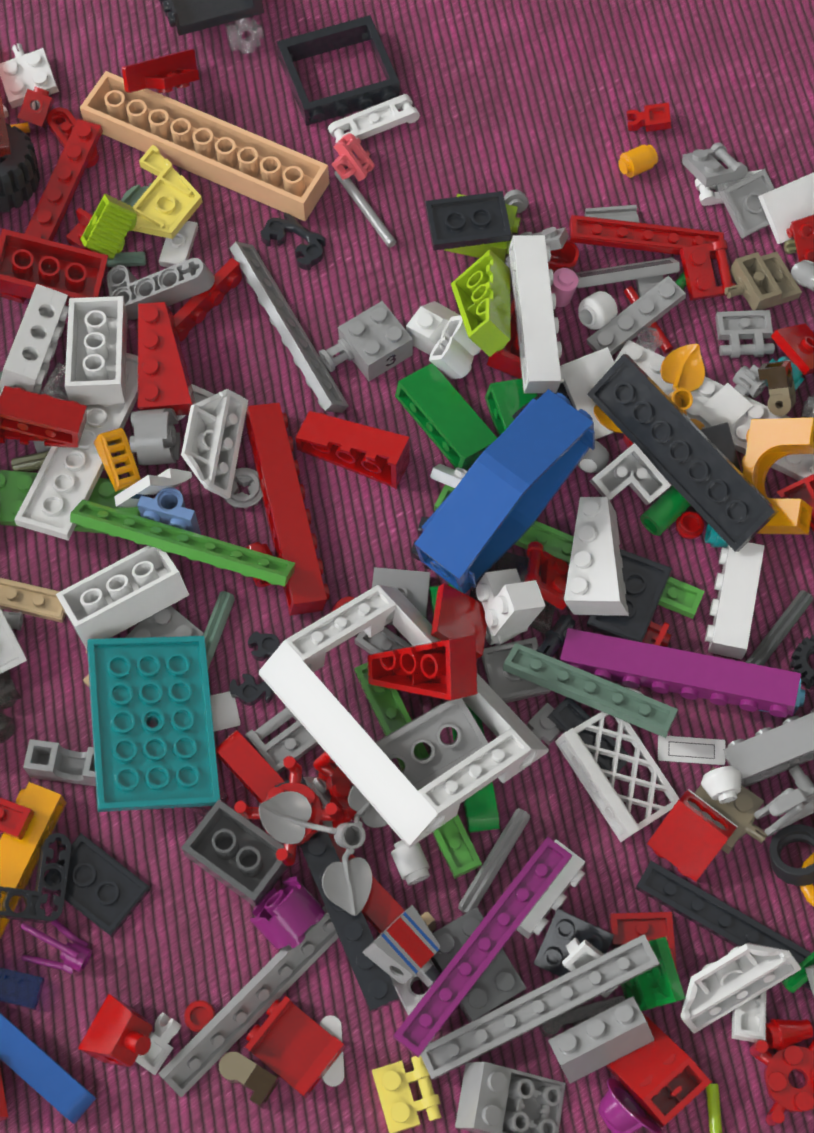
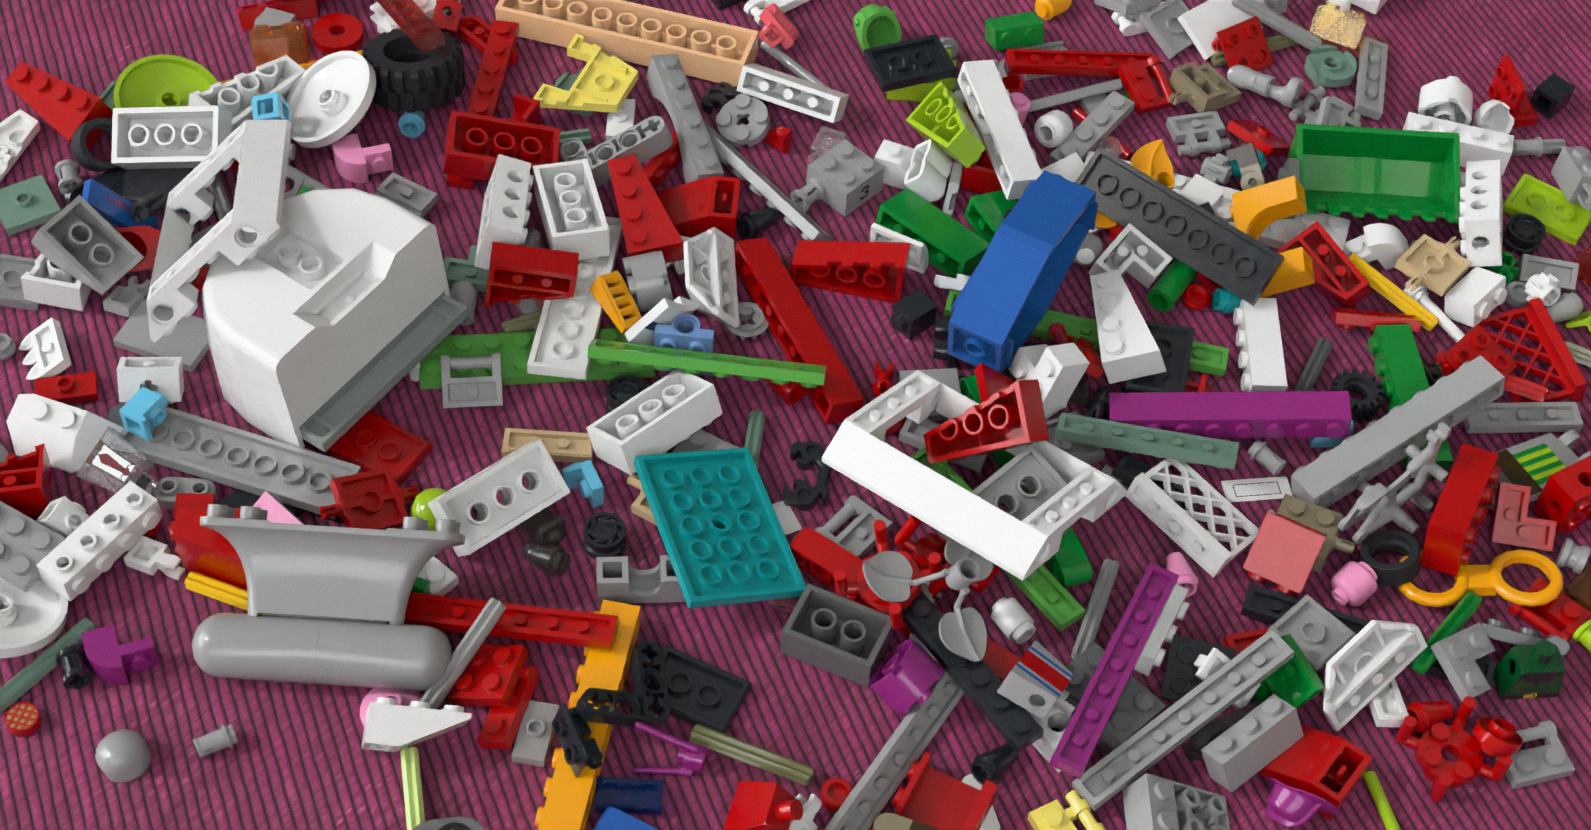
camera: 15 degrees left, 15 degrees down
(49, 646) = (586, 478): none -> medium azure bracket
(53, 708) = (604, 536): none -> black wheel
(105, 553) = (623, 391): none -> black wheel
(109, 226) = (555, 102): lime brick -> none
(132, 961) = (752, 754): none -> olive axle
(228, 358) = (703, 205): none -> red slope
(235, 275) = (671, 88): none -> light grey arch
(279, 379) = (756, 222): none -> black cone
(284, 252) = (743, 107): none -> light grey plate
(325, 286) = (779, 139): none -> red tile
(348, 236) = (792, 92): none -> white brick
(350, 1014) = (993, 763): none -> black cone
(354, 584) = (883, 380): none -> red arm
(367, 297) = (824, 141): none -> clear plate
(396, 425) = (918, 252): none -> white slope
(402, 506) = (913, 314): none -> black brick
(450, 173) = (876, 26): none -> bright green helmet
(476, 373) = (952, 188): none -> light grey tile
(586, 838) = (1177, 563): none -> bright pink cone
(588, 190) = (1014, 31): none -> green brick
(693, 929) = (1314, 631): none -> light grey tile
(709, 718) = (1266, 457): none -> light grey pin
(722, 783) = (1302, 498): white cone -> none
(754, 877) = (1353, 583): none -> bright pink head

